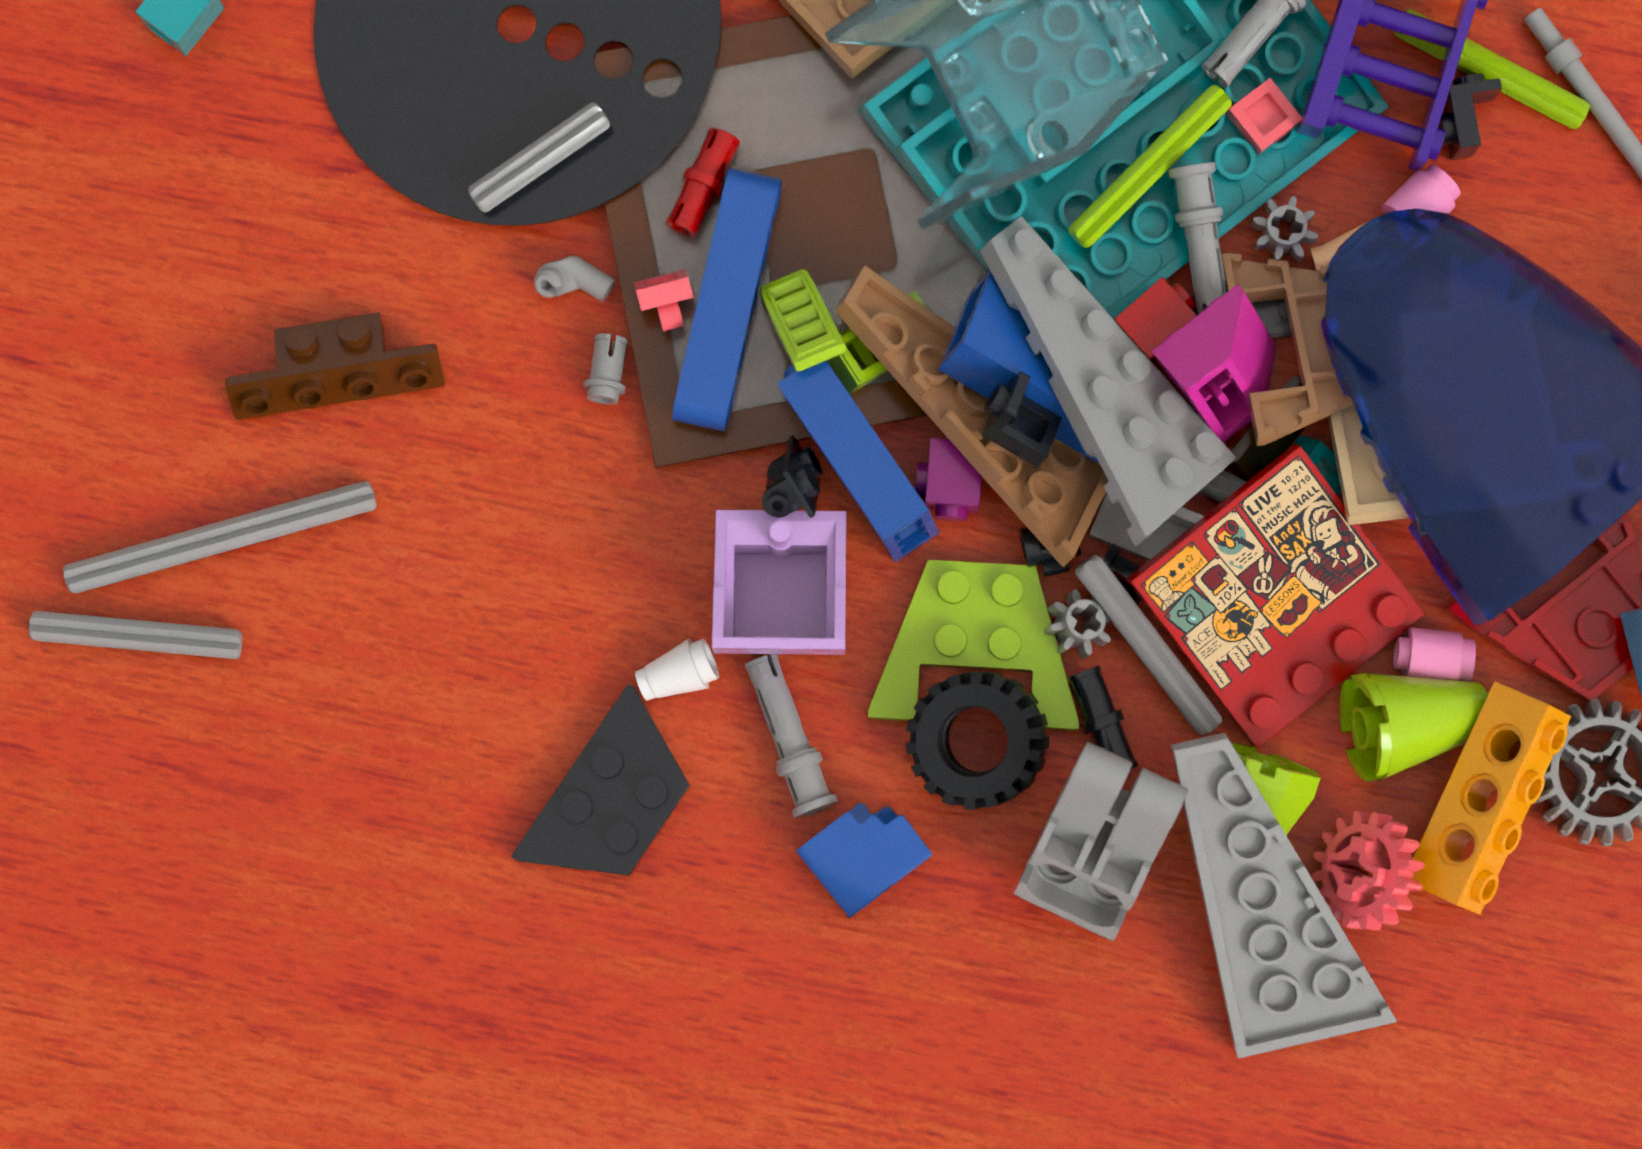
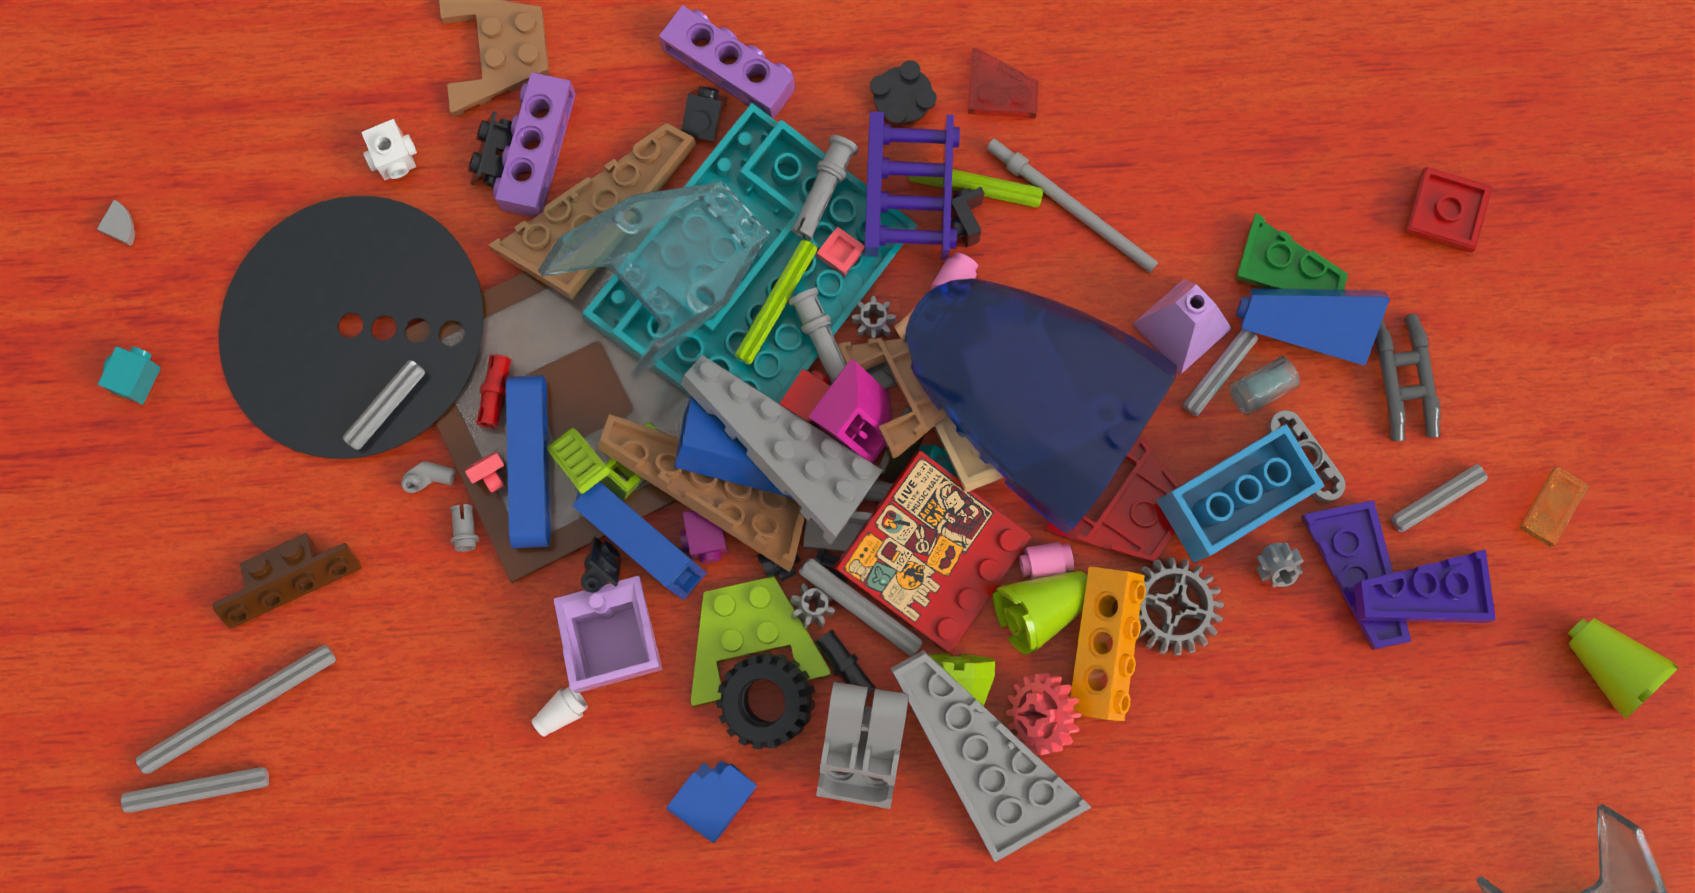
camera: 15 degrees left, 5 degrees down
(610, 797) = (536, 808): black wing -> none
(797, 760) = (653, 747): light grey pin -> none
(1020, 422) = (735, 486): black bracket -> none

